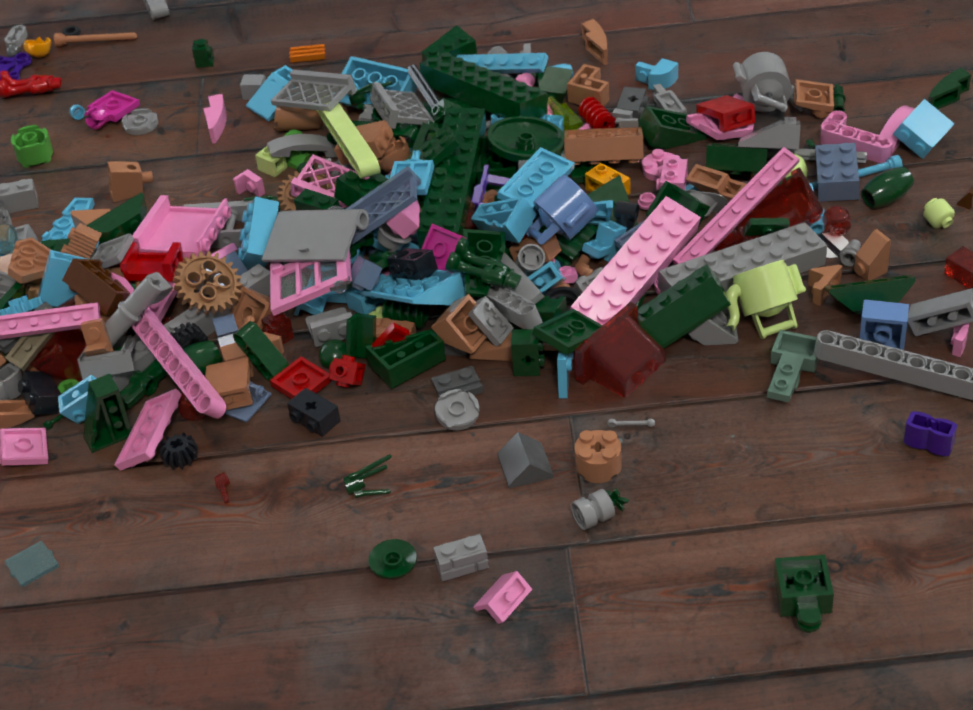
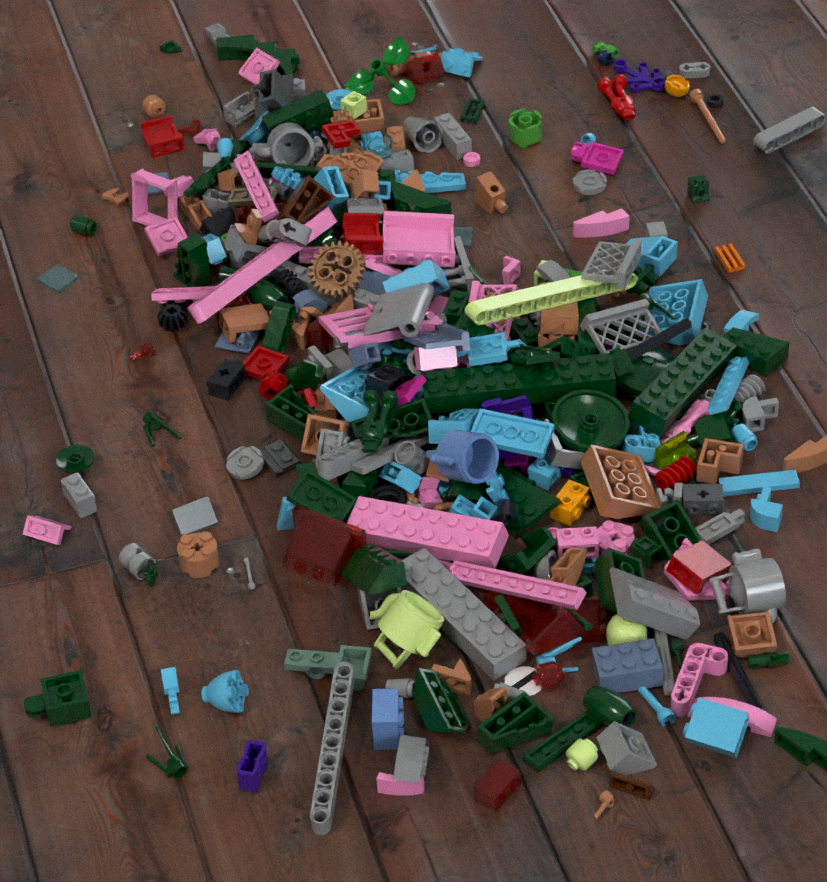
camera: 75 degrees right, 0 degrees up
(48, 194) = (471, 159): none -> bright pink tile
(405, 55) = (741, 320): none -> medium azure slope
(617, 74) = (755, 482): none -> medium azure tile
(688, 146) = (644, 549): none -> dark green window
(792, 496) = (171, 687): none -> medium azure piece
(820, 445) = (226, 692): none -> medium azure piece
(831, 318) = (405, 686): none -> light grey cone
(852, 117) = (737, 671): none -> black axle
(906, 253) = (514, 724): none -> dark green wedge
(912, 500) = (176, 765): none -> dark green plant
(914, 228) = (559, 742): none -> dark green tile
(938, 186) = (625, 750): none -> light grey slope

